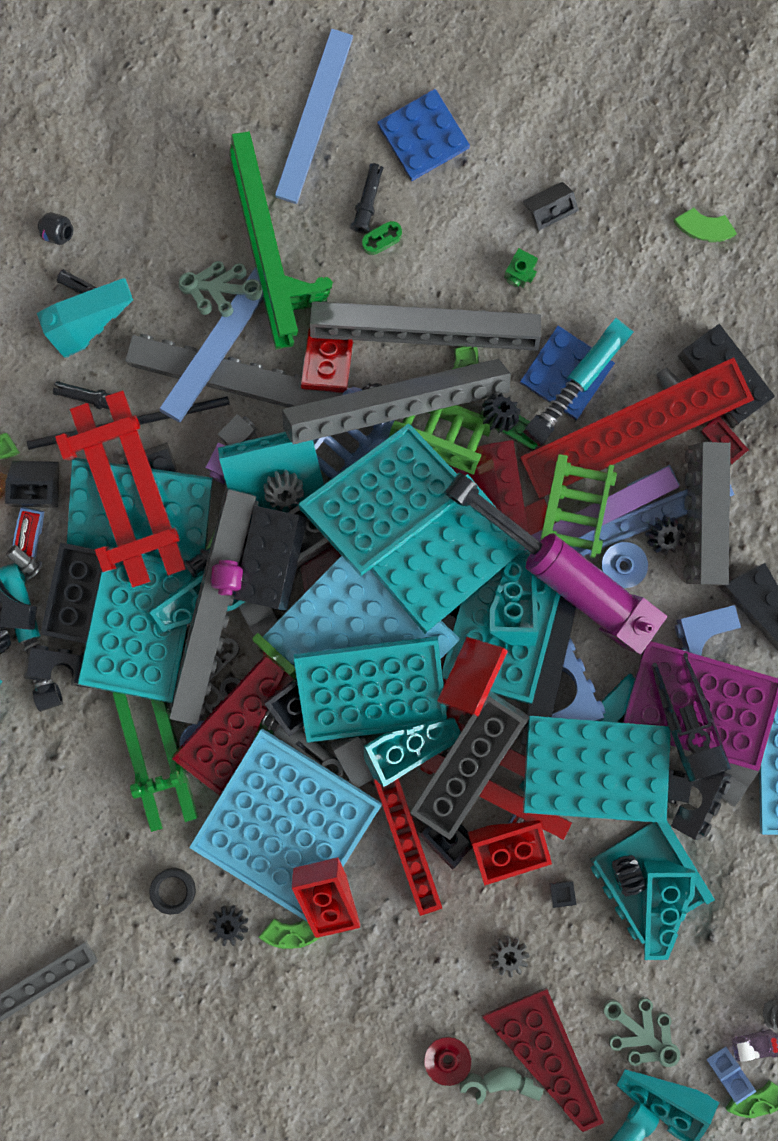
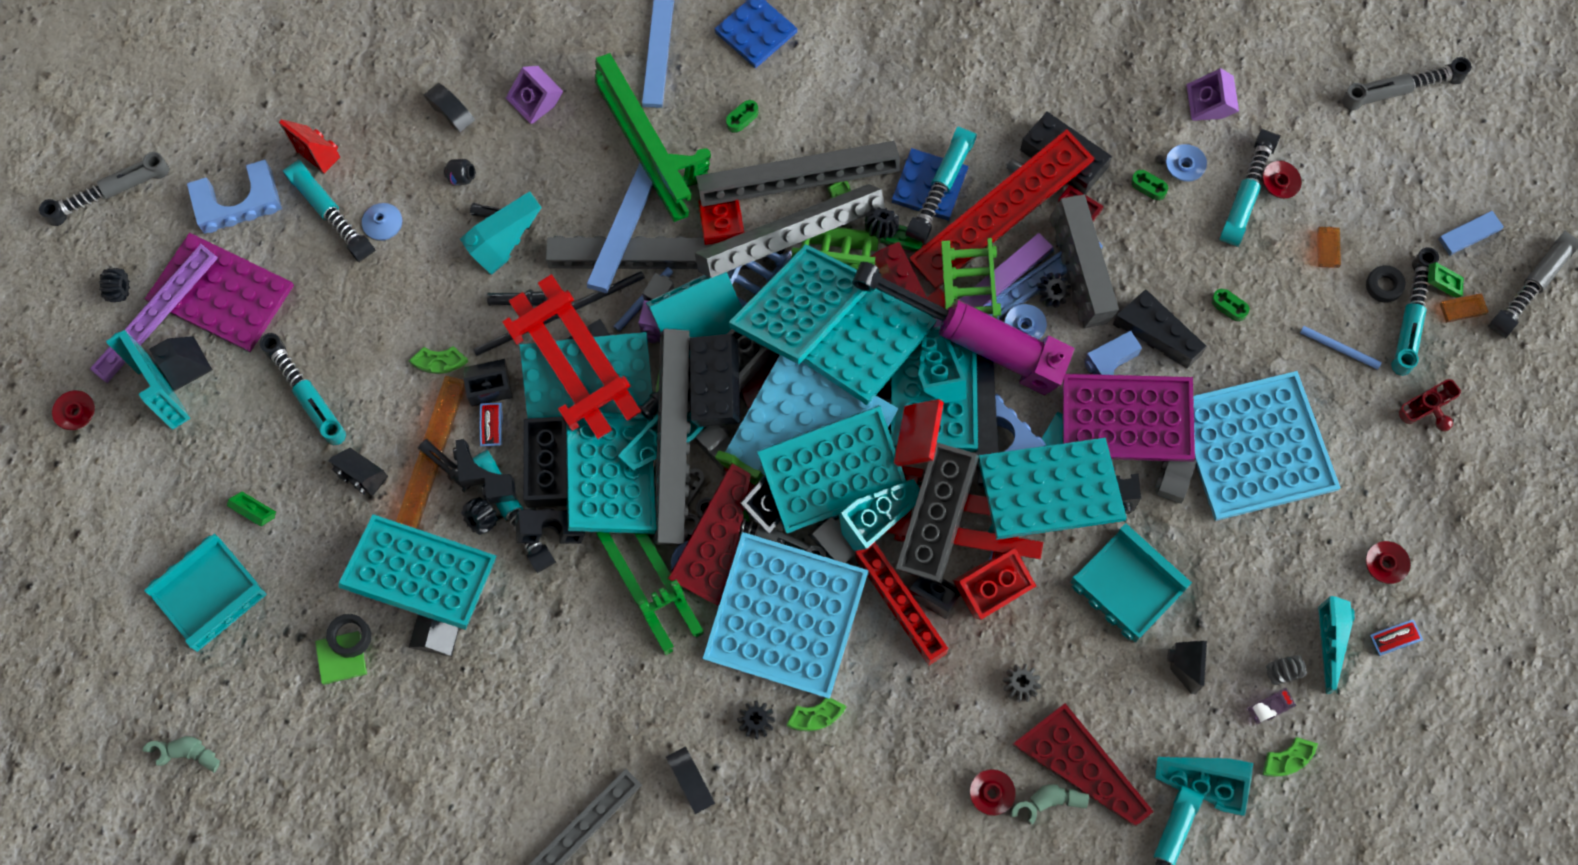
camera: 10 degrees left, 15 degrees down
(26, 563) = (495, 447): dark grey pin -> none
(59, 146) = (450, 106): none -> black brick
(144, 970) = (690, 780): none -> black brick
(157, 152) = (533, 93): none -> medium lavender slope
(161, 905) = (695, 719): black tyre -> none
(192, 284) = (590, 188): sand green plant -> none
(211, 437) = (636, 306): none -> medium blue bar
(226, 577) = (680, 402): magenta head -> none
(283, 490) = (707, 317): dark grey gear -> none
(325, 897) = (840, 667): red slope -> none
(365, 208) = (722, 95): black pin -> none
(521, 269) = (867, 111): green brick -> none
(551, 205) = (879, 58): black panel -> none
(562, 894) = (1054, 616): black plate -> none
(628, 875) = (1108, 580): black gear -> none
(644, 1034) = (1166, 724): sand green plant -> none
(664, 905) = (1147, 595): teal wedge -> none
(687, 983) = (1189, 663): none -> black slope
(696, 821) = (1154, 517): black arch -> none
(704, 760) = (1141, 455): black piece -> none
(705, 228) = (1012, 46): bright green tile -> none
(731, 1075) = (1256, 740): medium blue slope -> none

